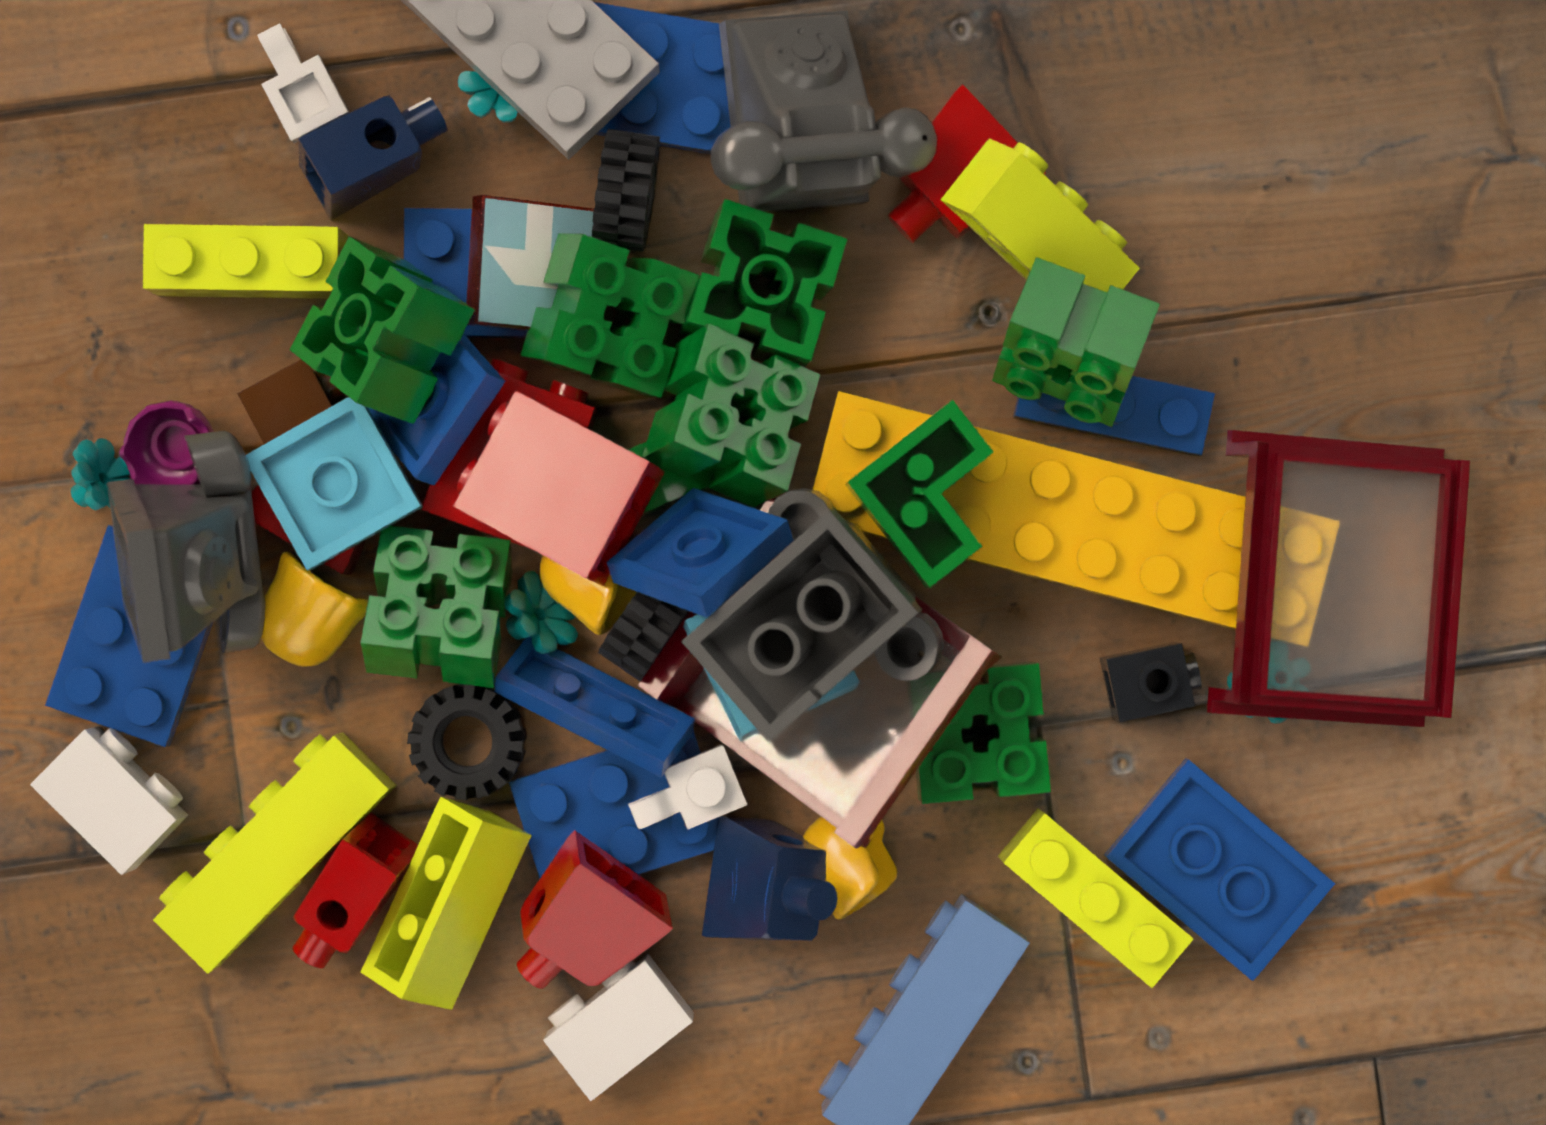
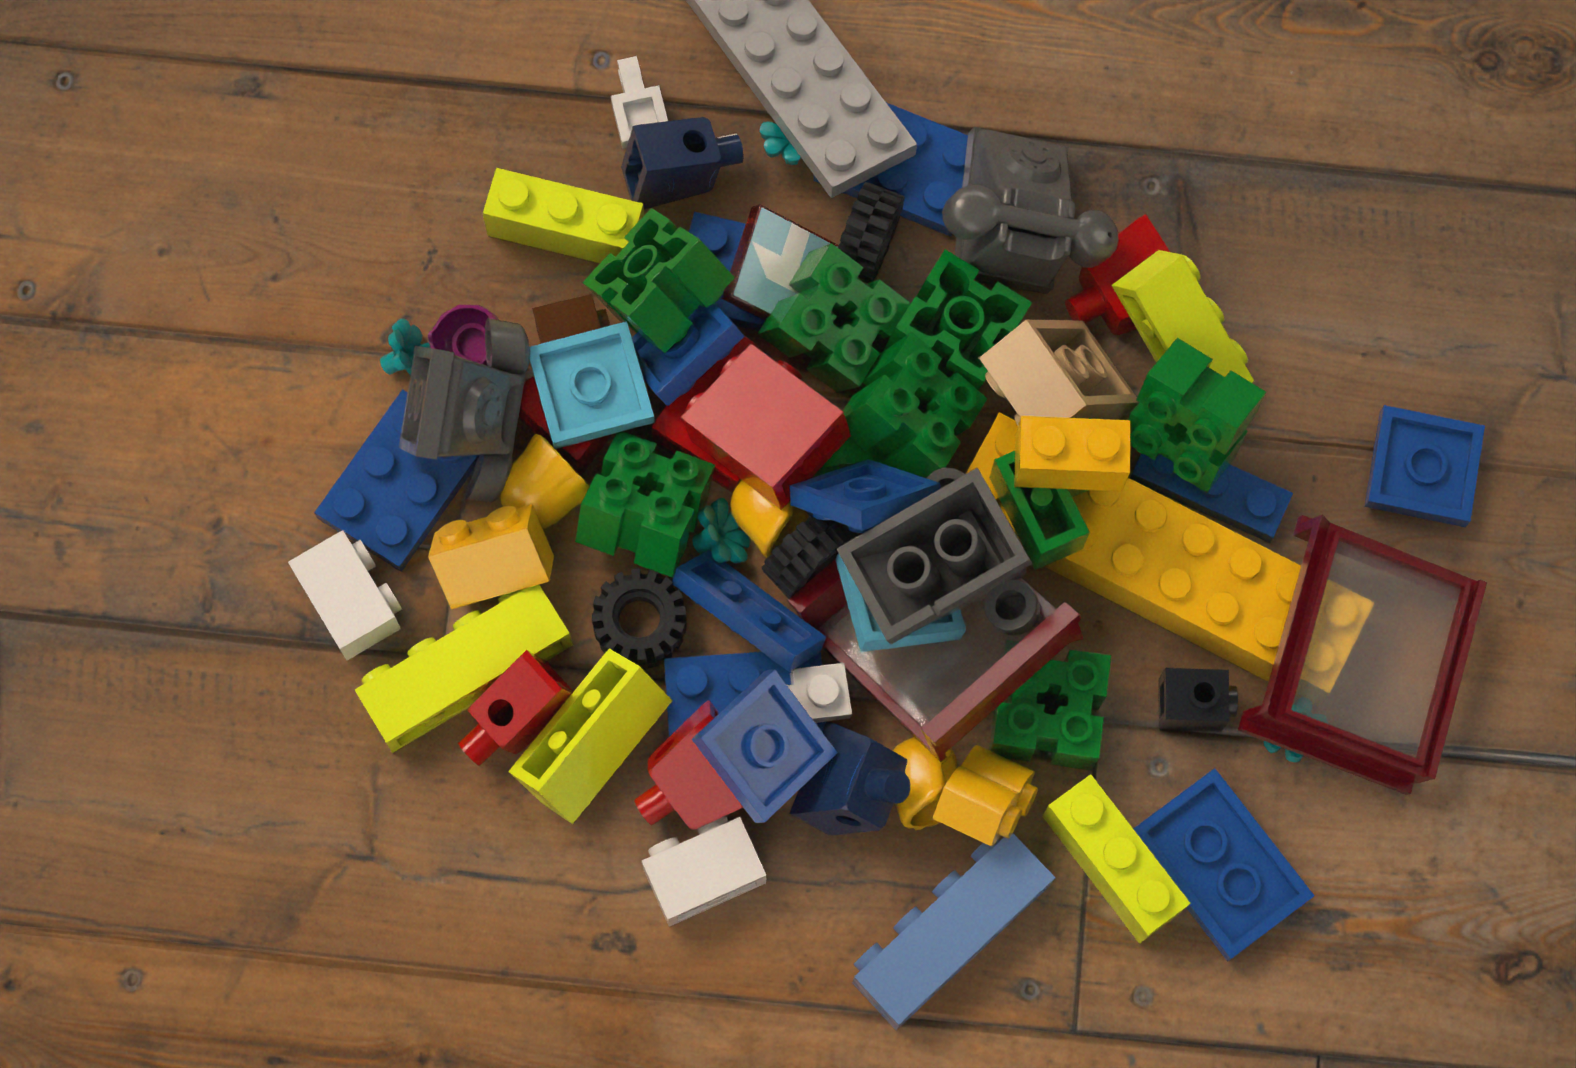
camera: 10 degrees right, 15 degrees down
(271, 718) = (491, 555): none -> yellow brick
(653, 884) = (764, 746): none -> blue plate
(902, 340) = (1057, 372): none -> tan brick
(926, 868) = (986, 796): none -> yellow brick
(941, 462) = (1072, 453): none -> yellow brick
(1367, 319) = (1424, 466): none -> blue plate

